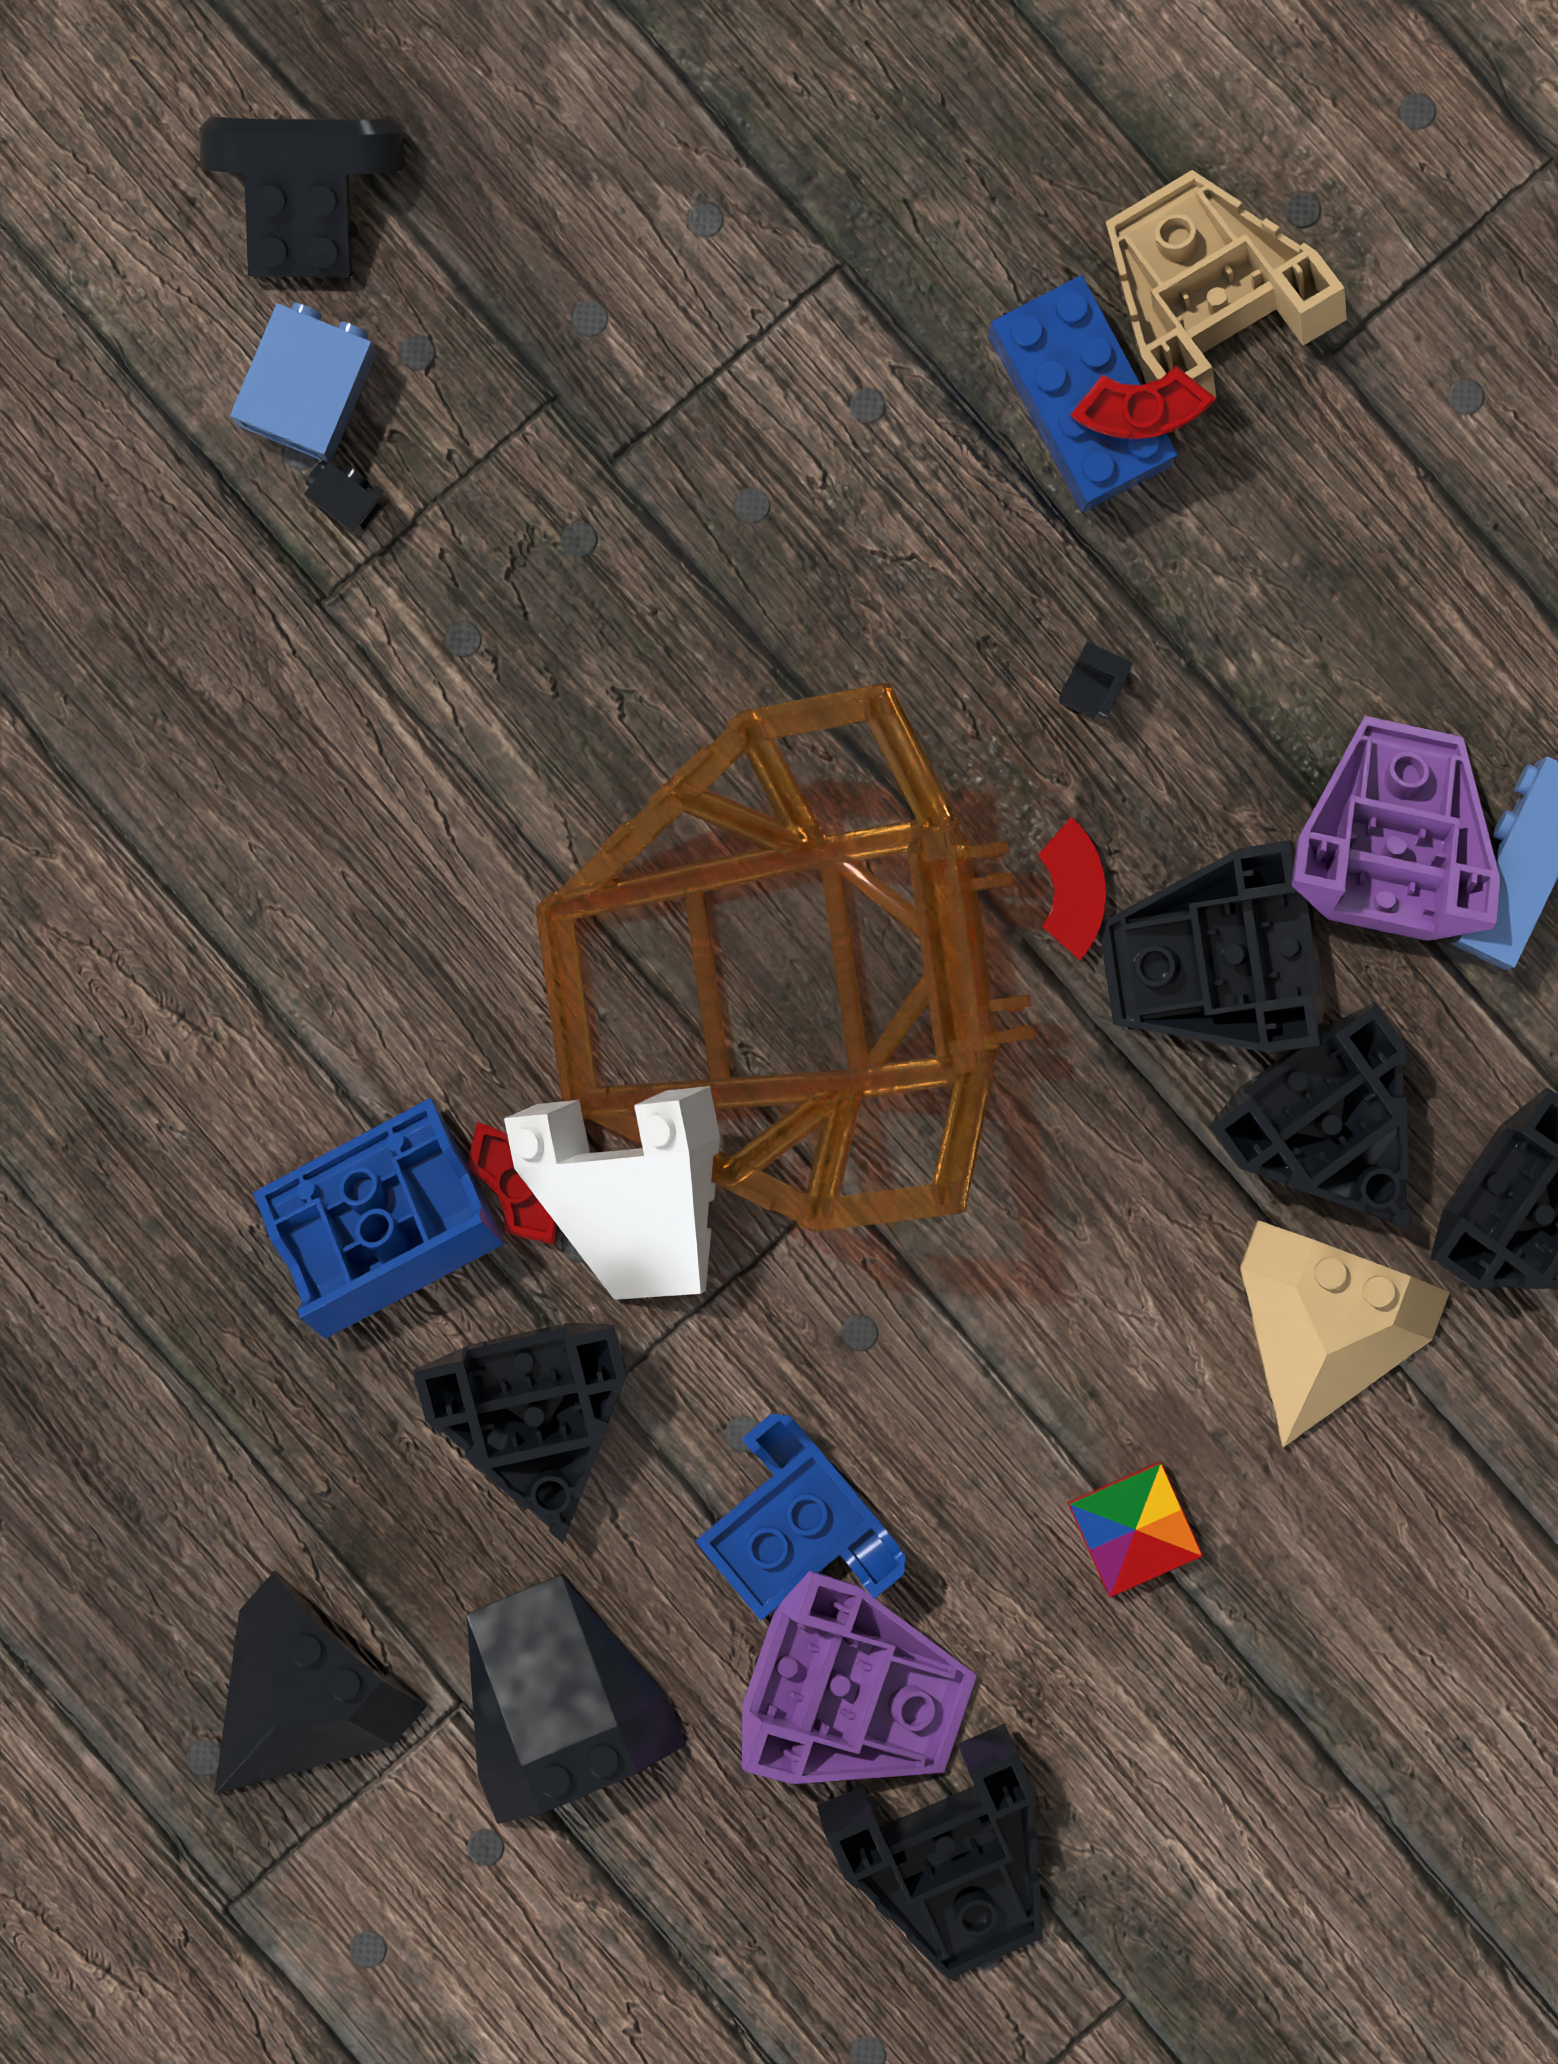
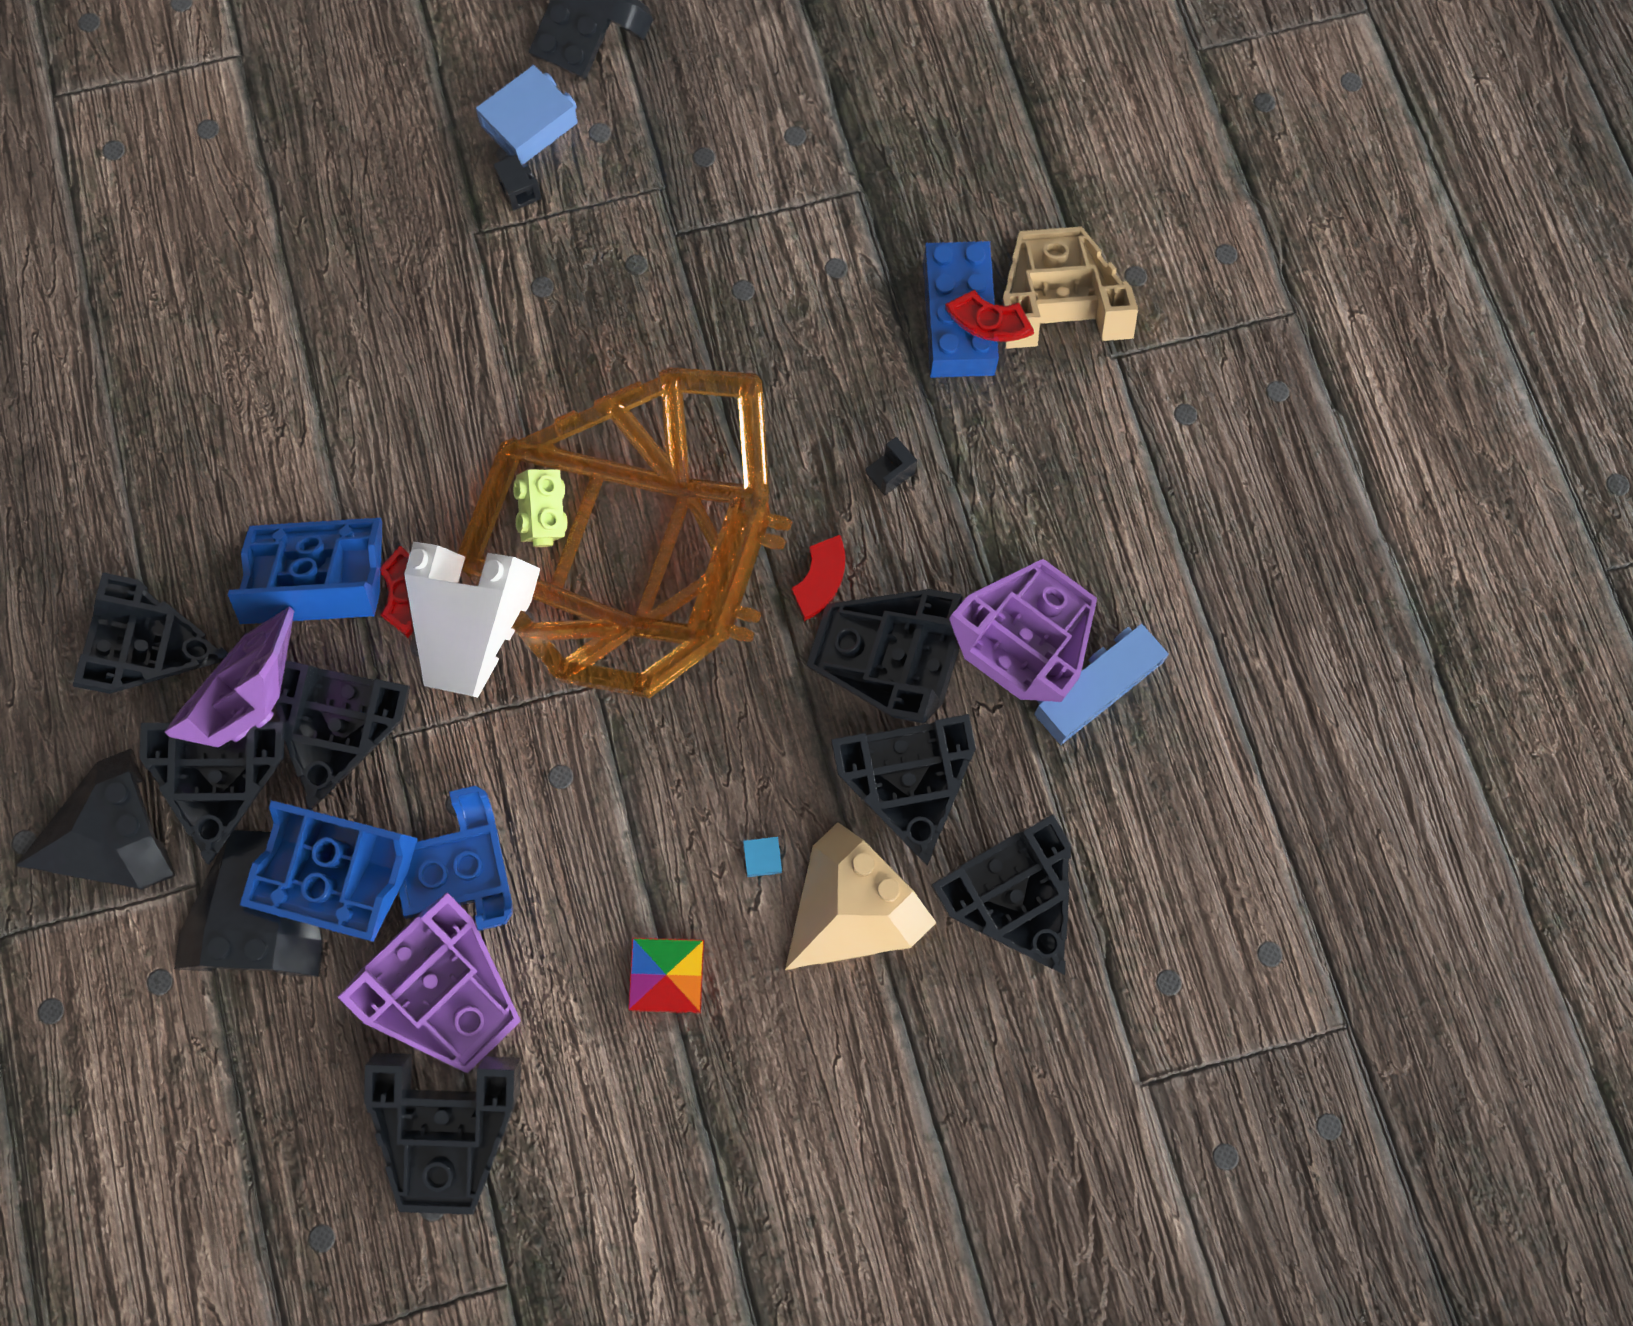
camera: 20 degrees right, 15 degrees down
(206, 1433) = (138, 639): none -> black wedge
(390, 1431) = (239, 689): none -> medium lavender wedge
(409, 1556) = (211, 784): none -> black wedge
(638, 1614) = (328, 871): none -> blue piece
(646, 981) = (540, 506): none -> yellowish green brick
(1182, 1314) = (762, 857): none -> dark azure tile

